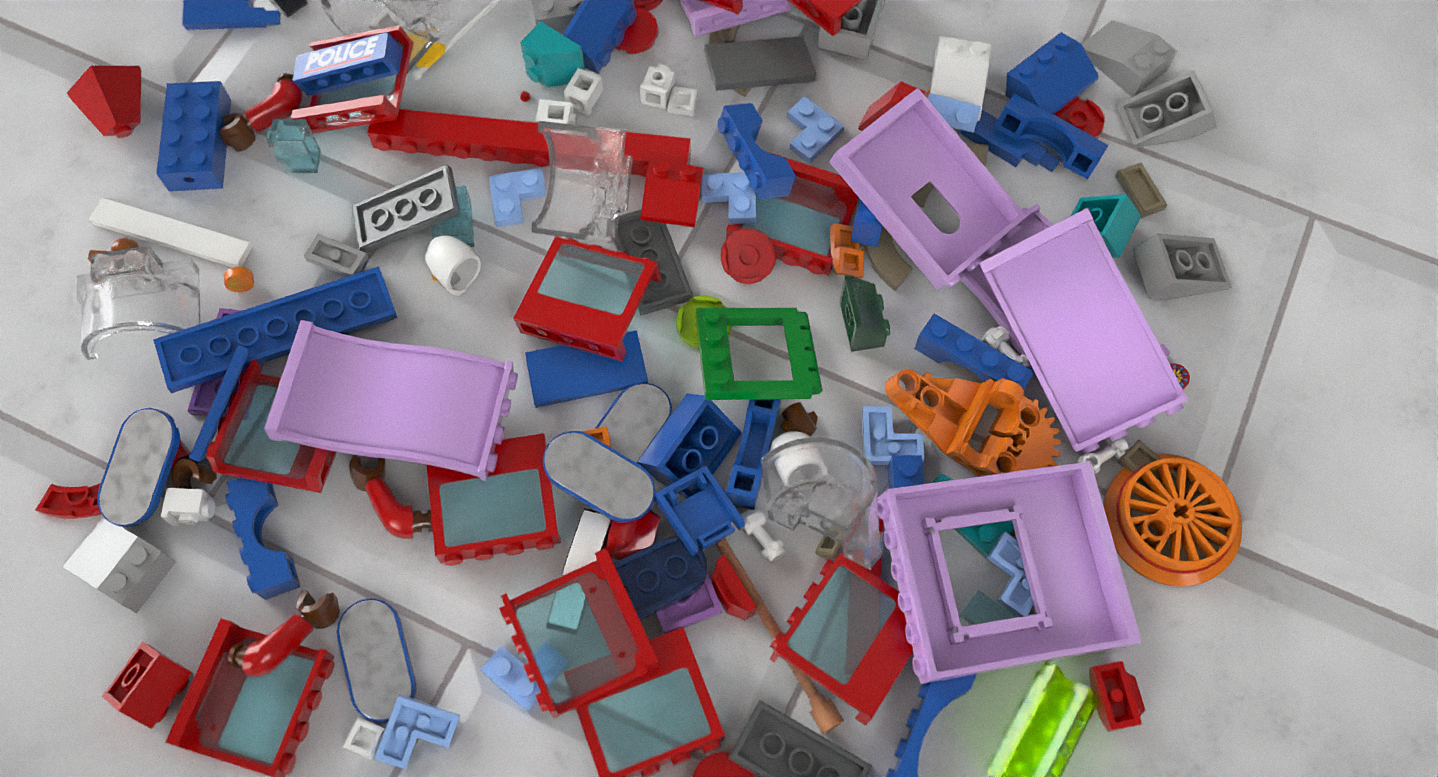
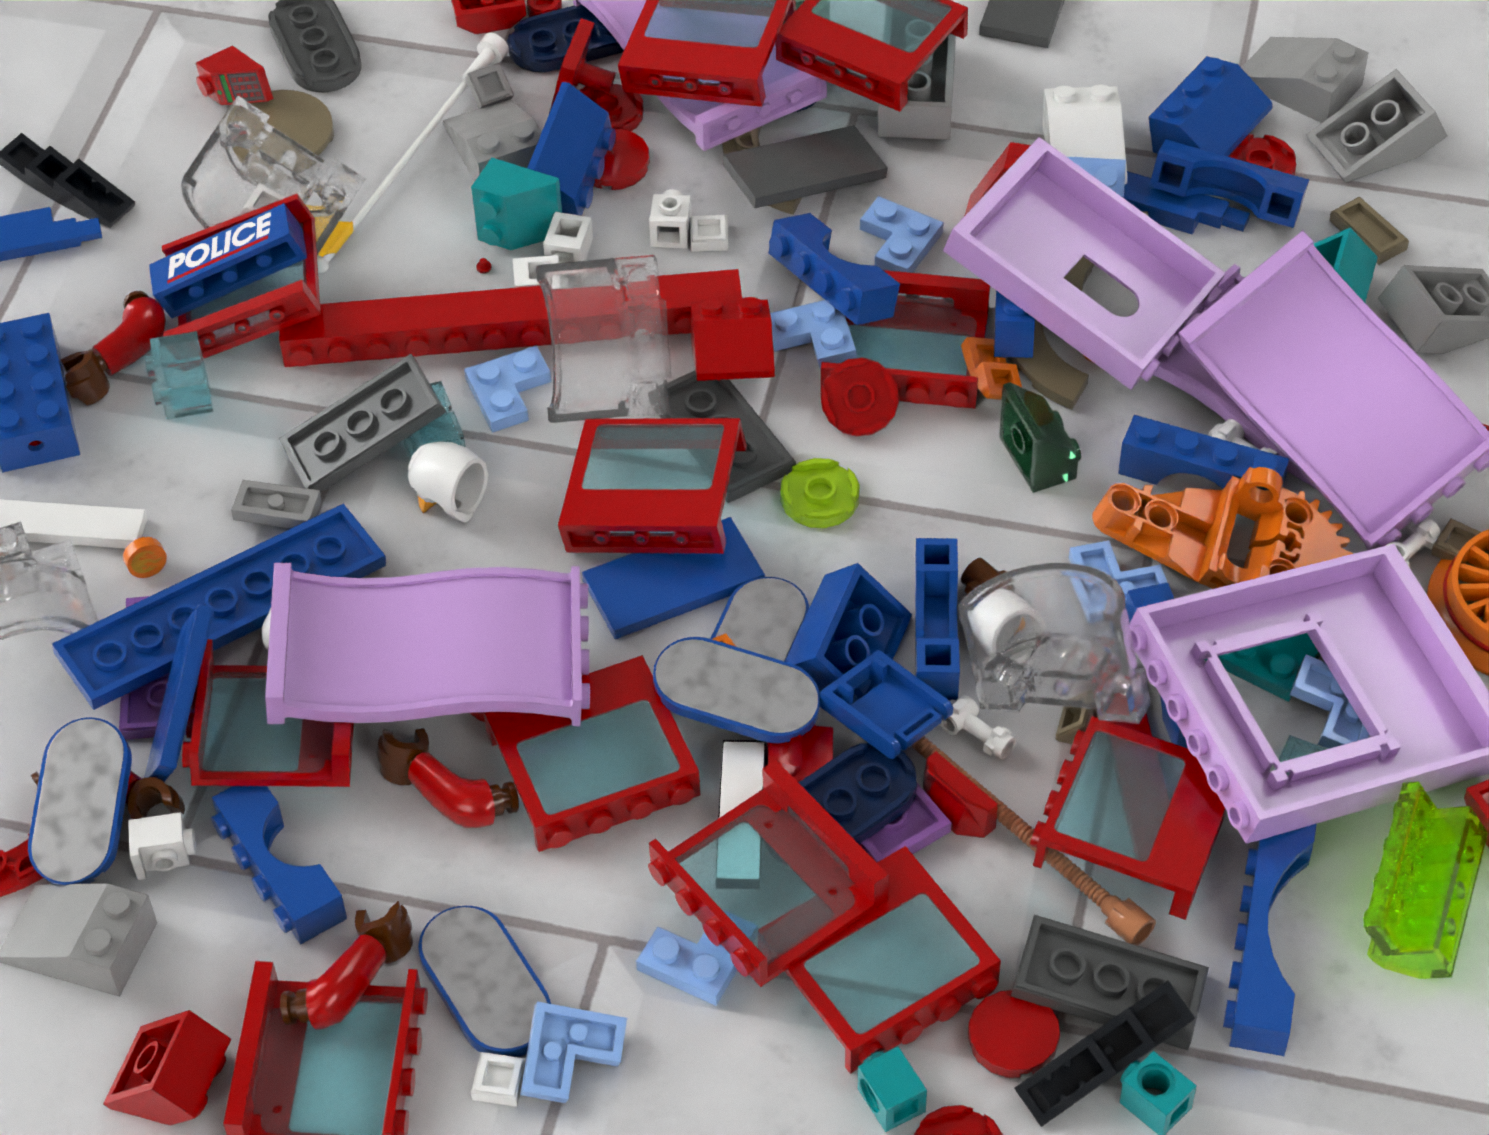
camera: 10 degrees left, 15 degrees down
(717, 363) = (865, 533): green hinge -> none

